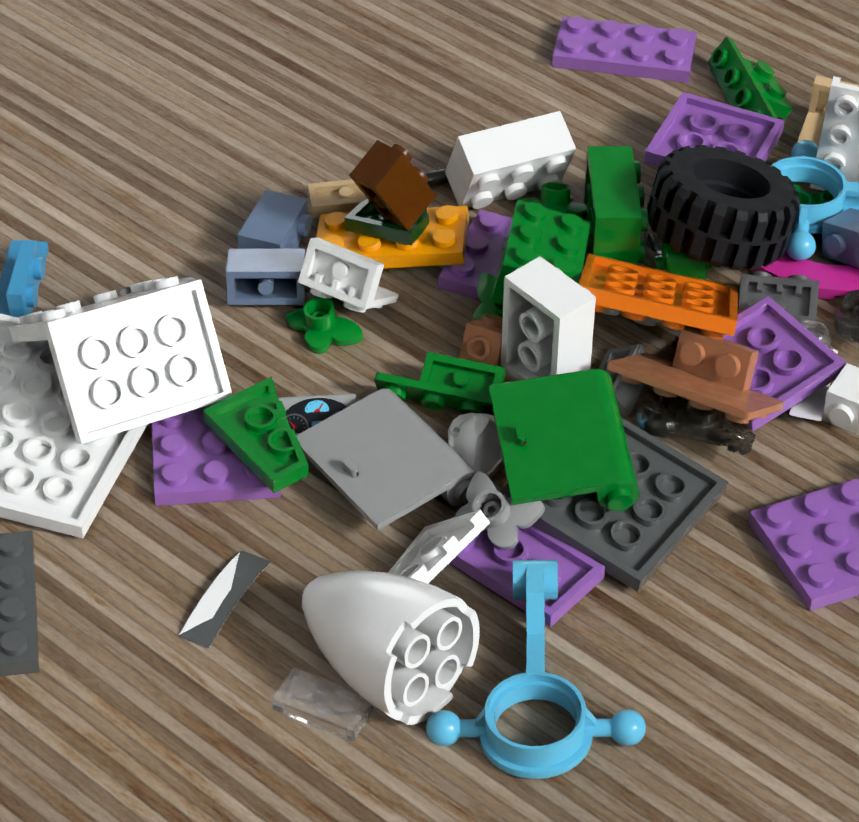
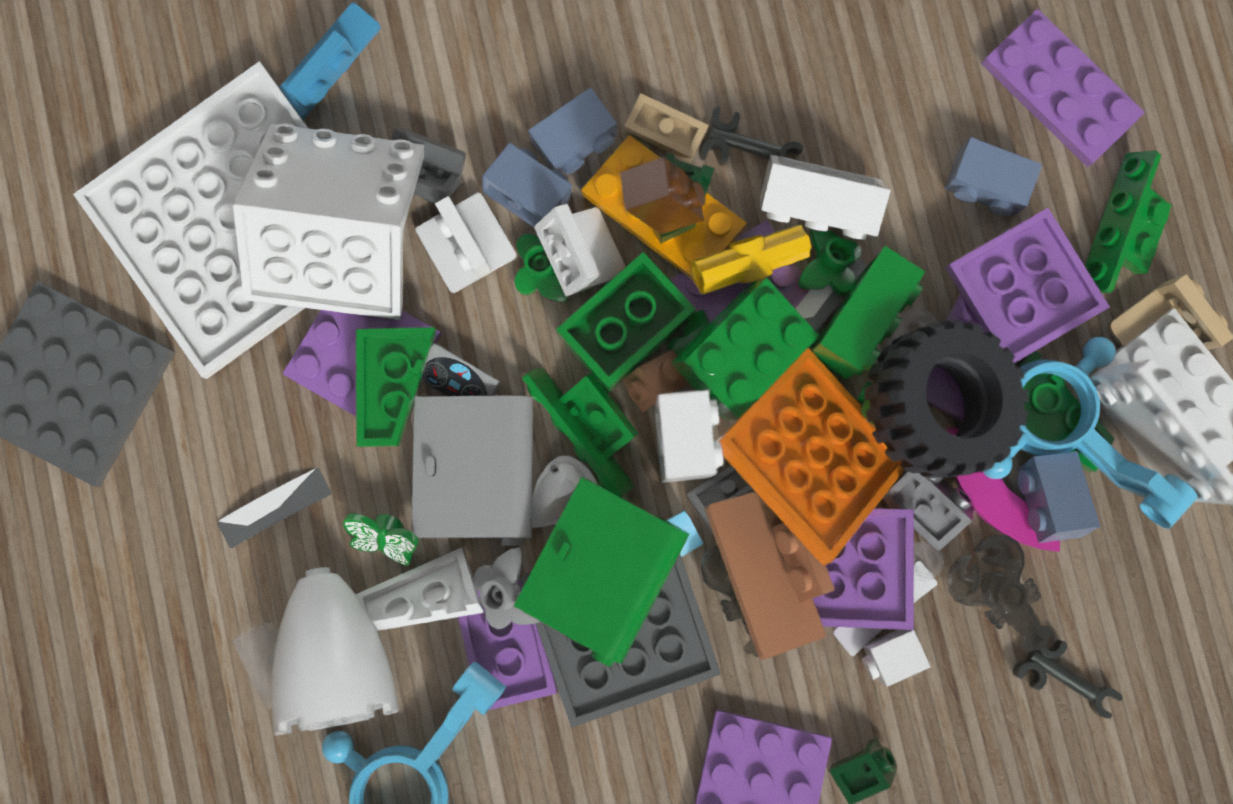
camera: 35 degrees right, 40 degrees up
(247, 333) = (465, 241): none -> white bracket
(352, 546) = (382, 534): none -> green animal
(427, 306) = (625, 322): none -> green brick
(489, 217) = (750, 259): none -> yellow piece
(625, 108) = (993, 177): none -> sand blue brick

